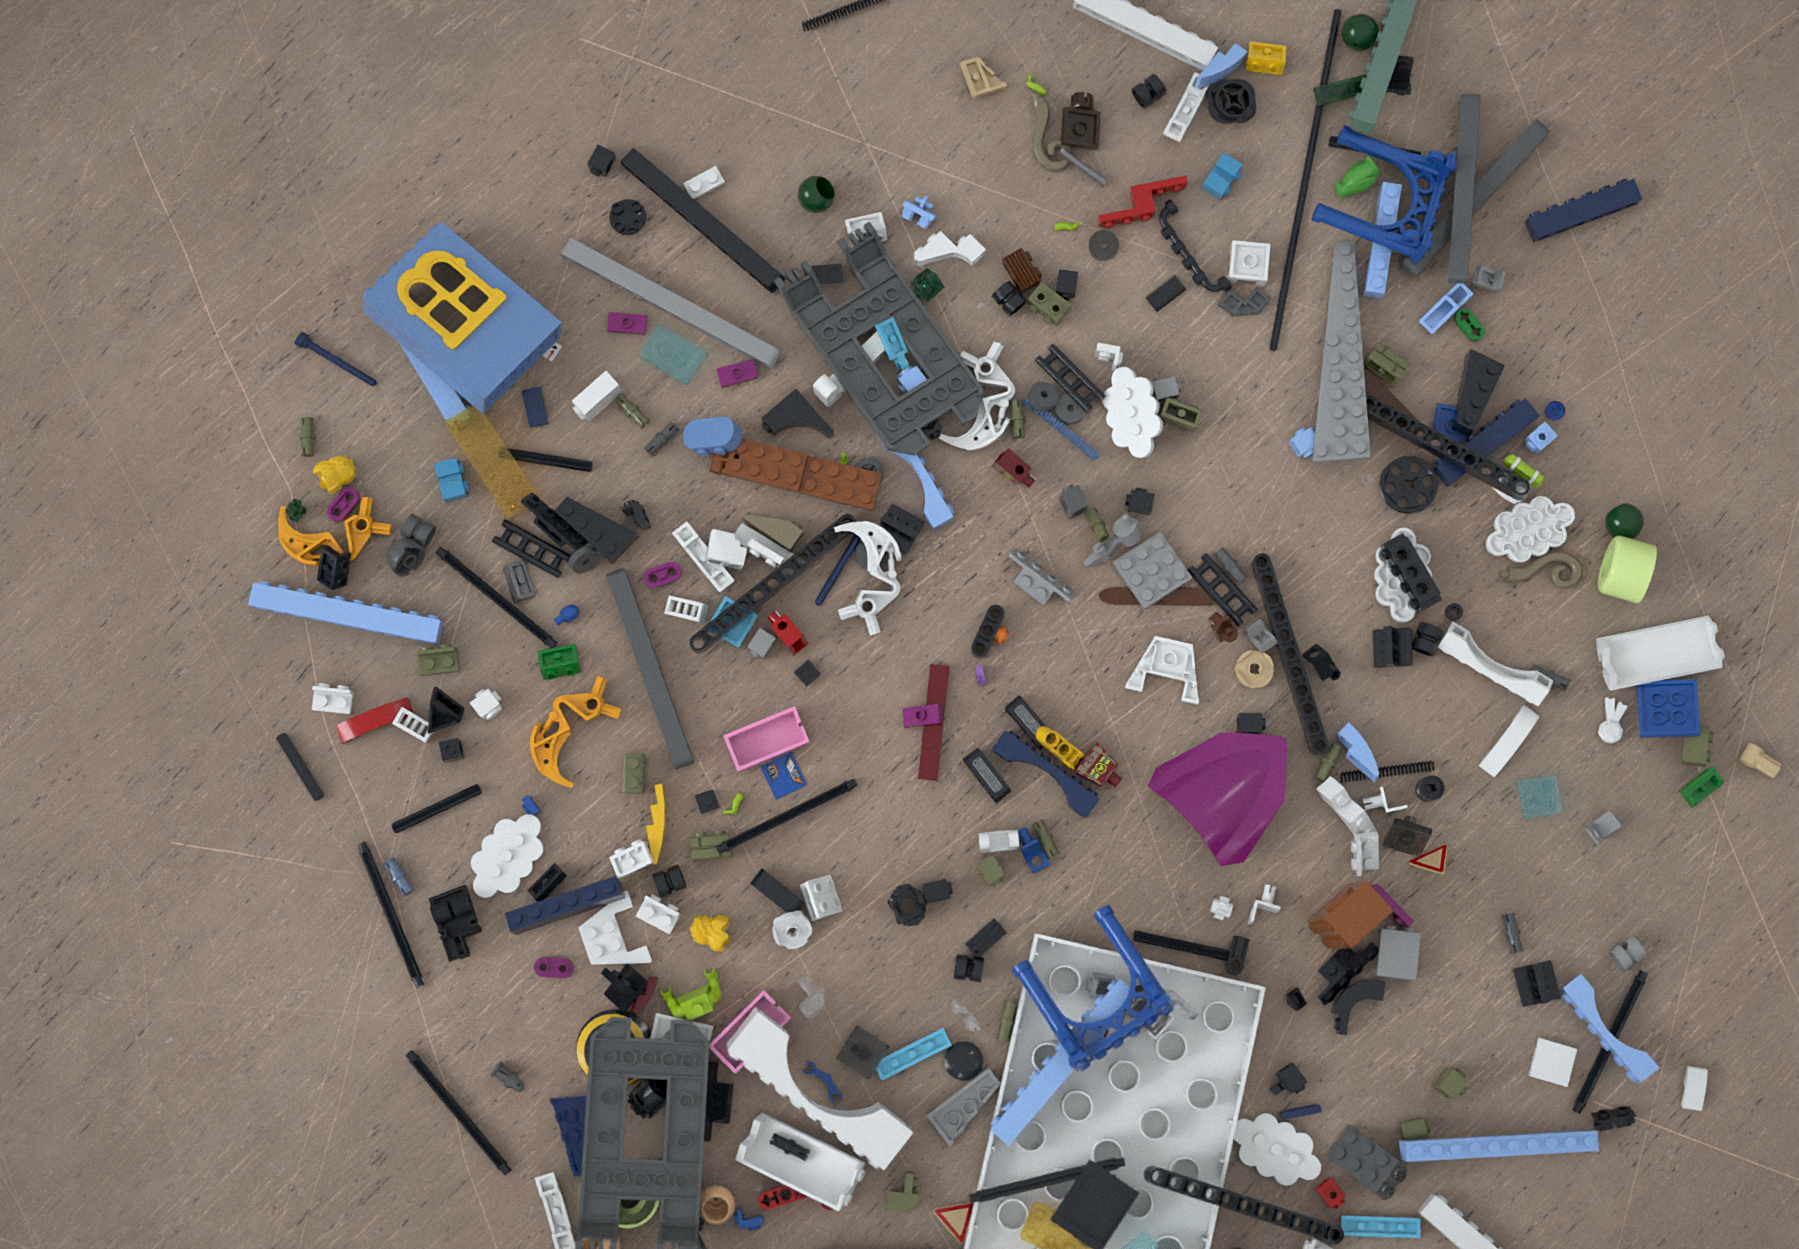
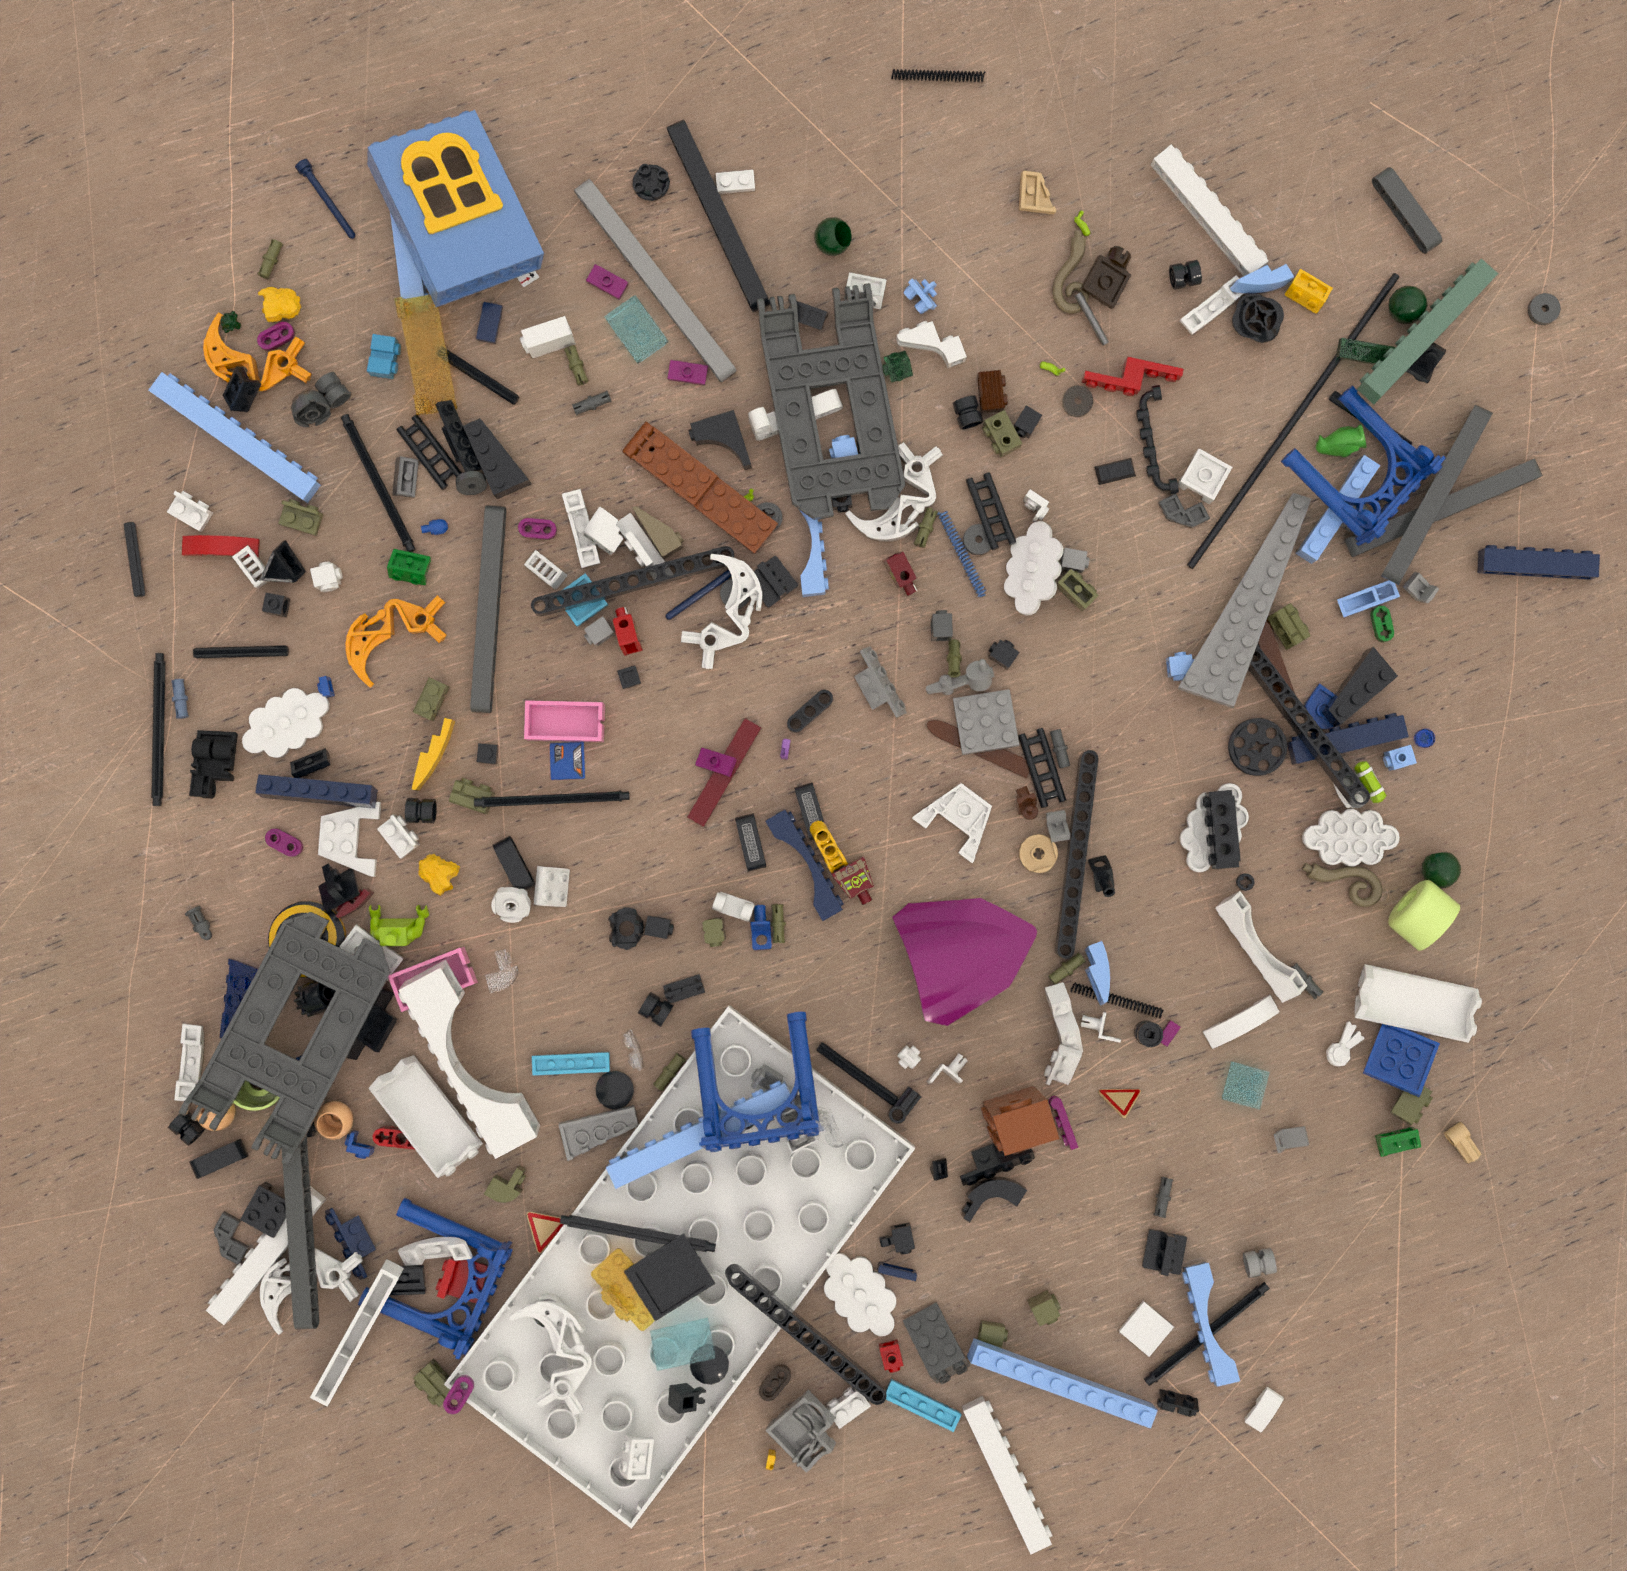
camera: 25 degrees right, 5 degrees up
(458, 1112) = (142, 934): black piece -> none
(601, 161) = (649, 119): black brick -> none
(631, 859) = (394, 776): white bracket -> none
(638, 513) = (538, 462): black bracket -> none
(712, 436) = (638, 420): medium blue brick -> none
(735, 804) = (512, 767): lime piece -> none
(789, 1147) = (422, 1098): black pin -> none
(826, 1078) = (484, 1050): blue piece -> none
(862, 1052) = (526, 1042): clear smoke tile -> none
(893, 342) = (841, 405): medium azure plate -> none
(1001, 635) = (821, 720): orange plate -> none
(1046, 390) = (964, 513): dark grey piece -> none
(1222, 176) = (1216, 384): dark azure brick -> none
(1250, 723) = (1012, 901): black brick -> none
(1392, 647) = (1174, 890): black bracket -> none
(1398, 953) = (1050, 1169): light grey panel -> none
(1407, 836) = (1108, 1068): clear smoke tile -> none
(1426, 639) = (1208, 896): black wheel -> none
(1448, 779) = (1169, 1032): none -> magenta piece

